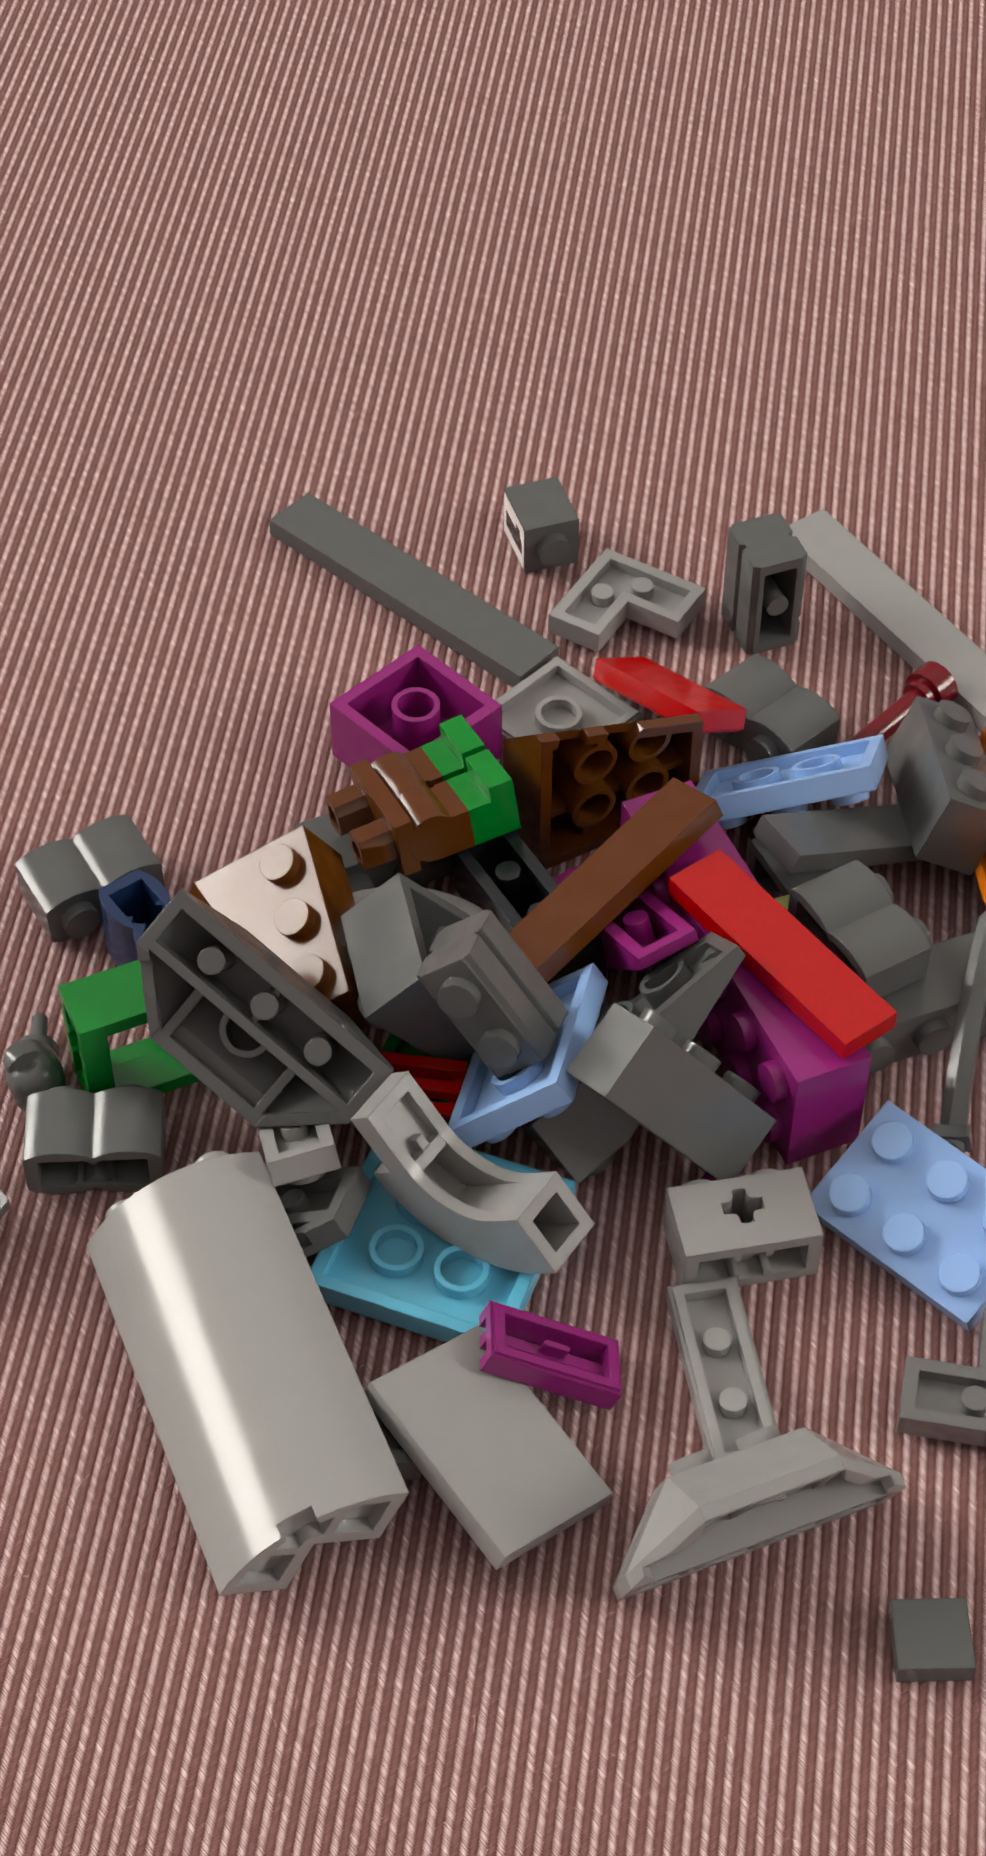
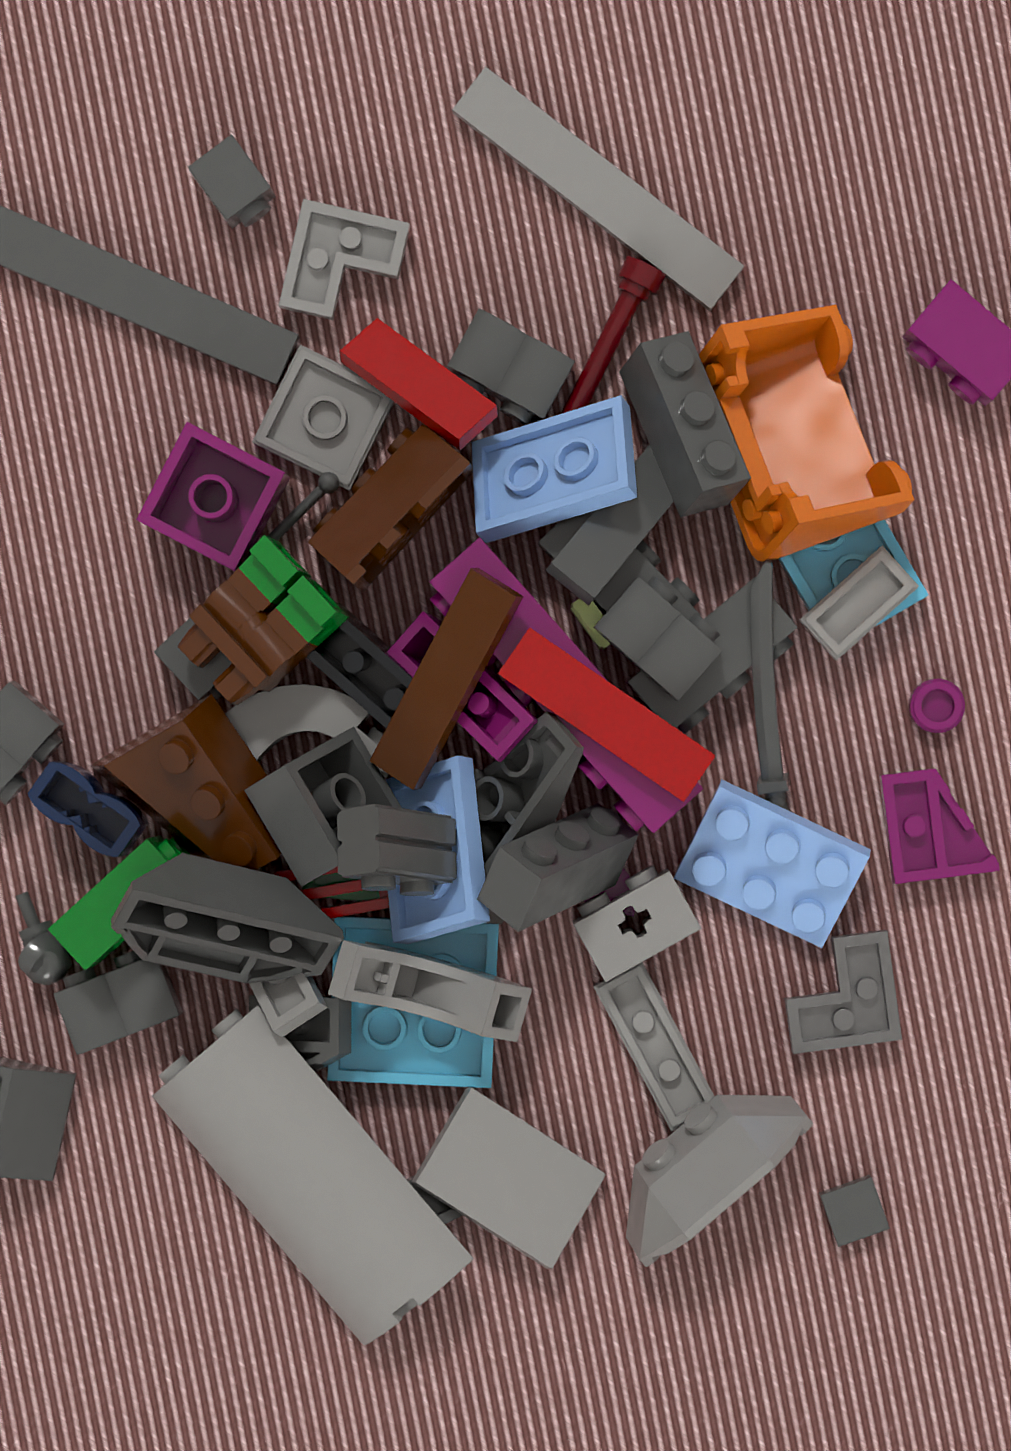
camera: 15 degrees left, 40 degrees up
(550, 1365) = (489, 1100): magenta tile -> none
(763, 583) = (462, 217): dark grey brick -> none

